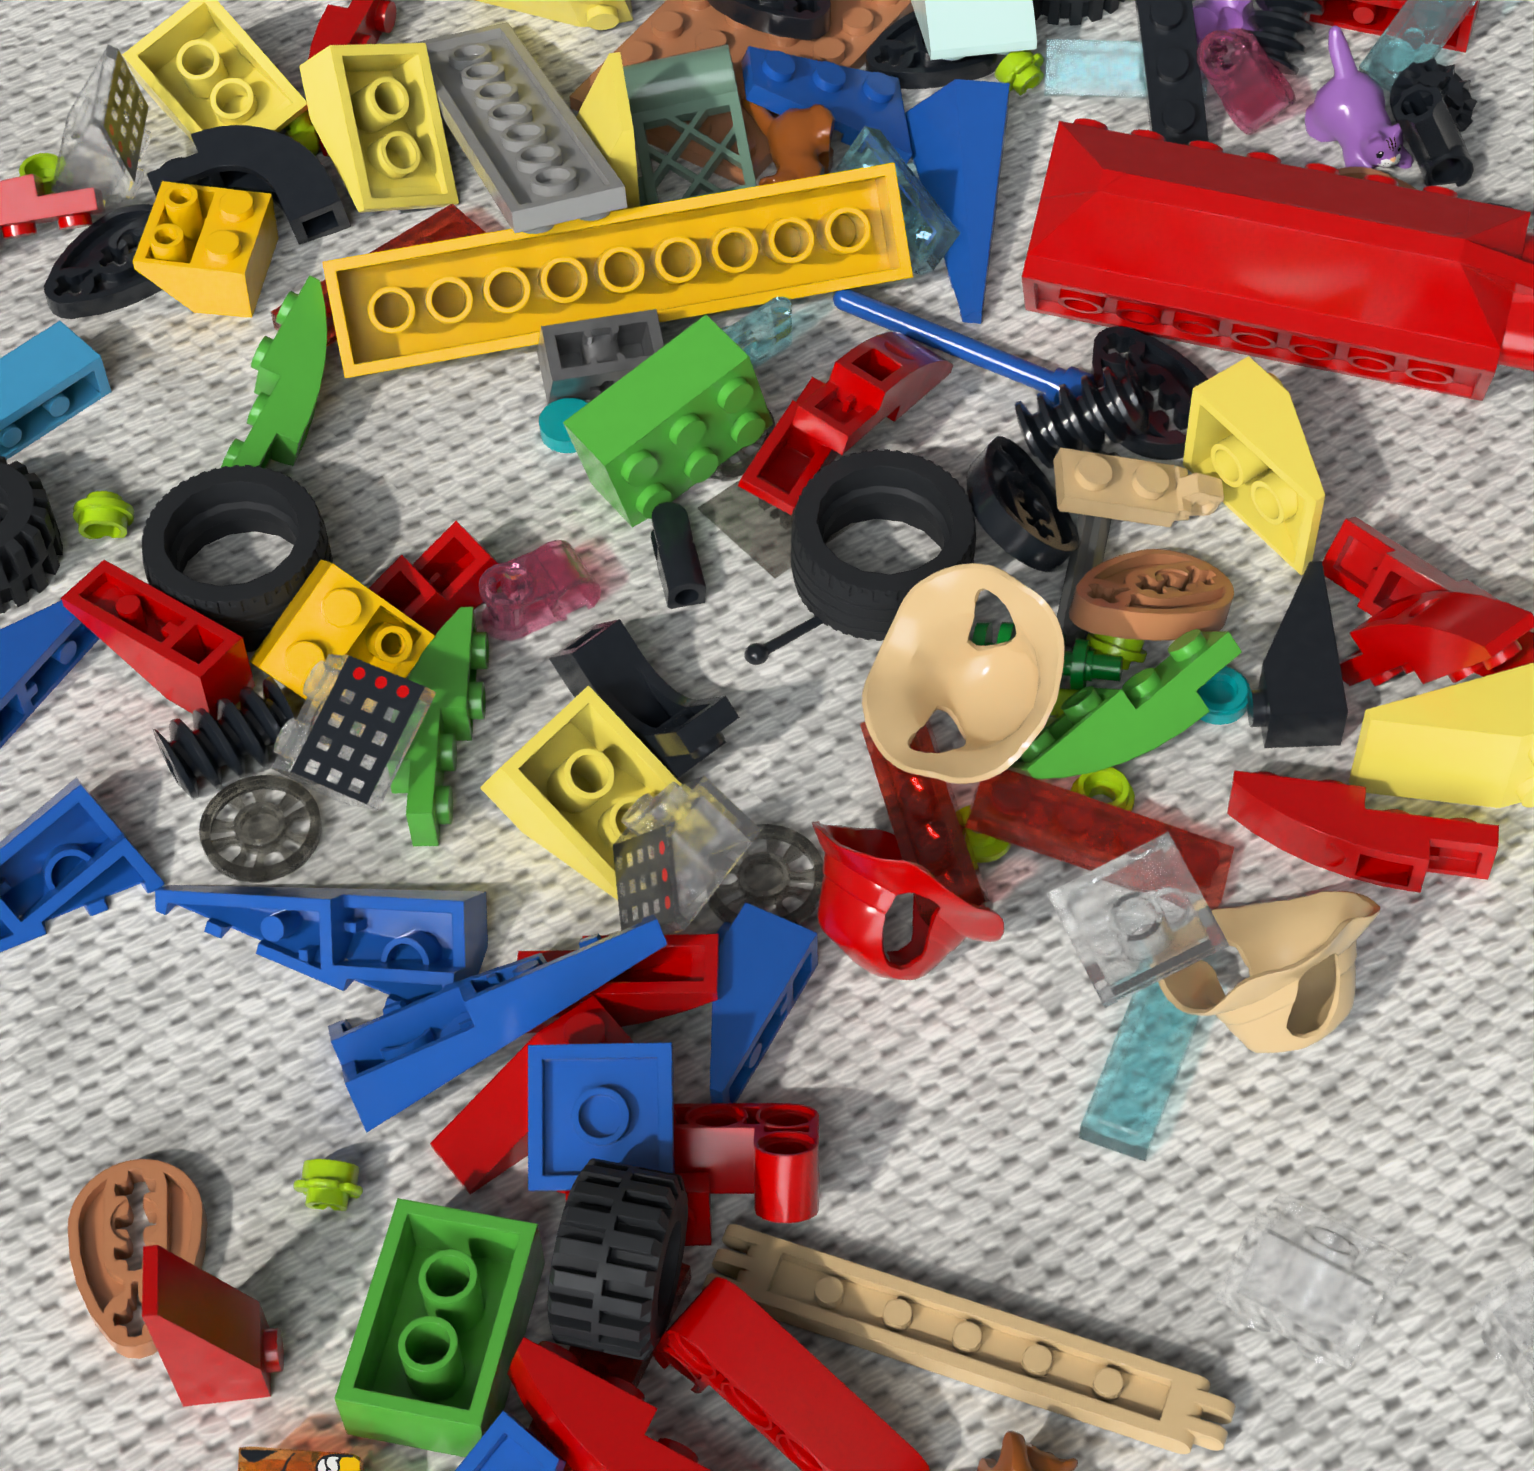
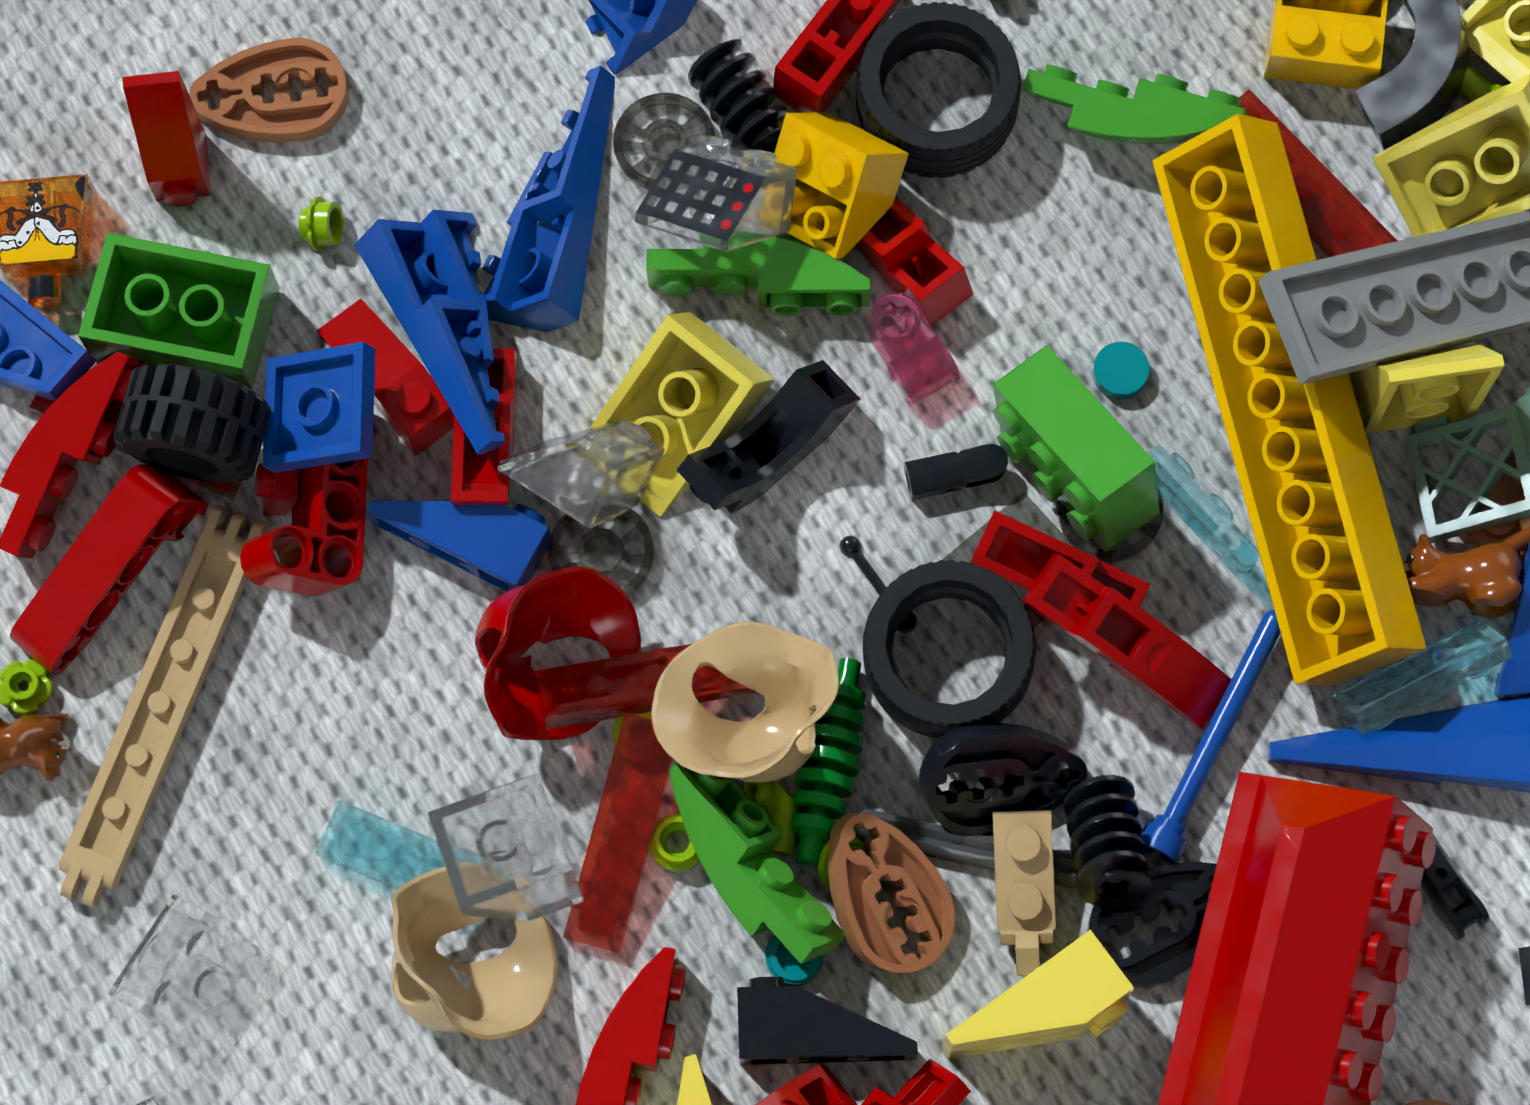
camera: 90 degrees right, 20 degrees up
(593, 354) = (1180, 390): flat silver brick -> none

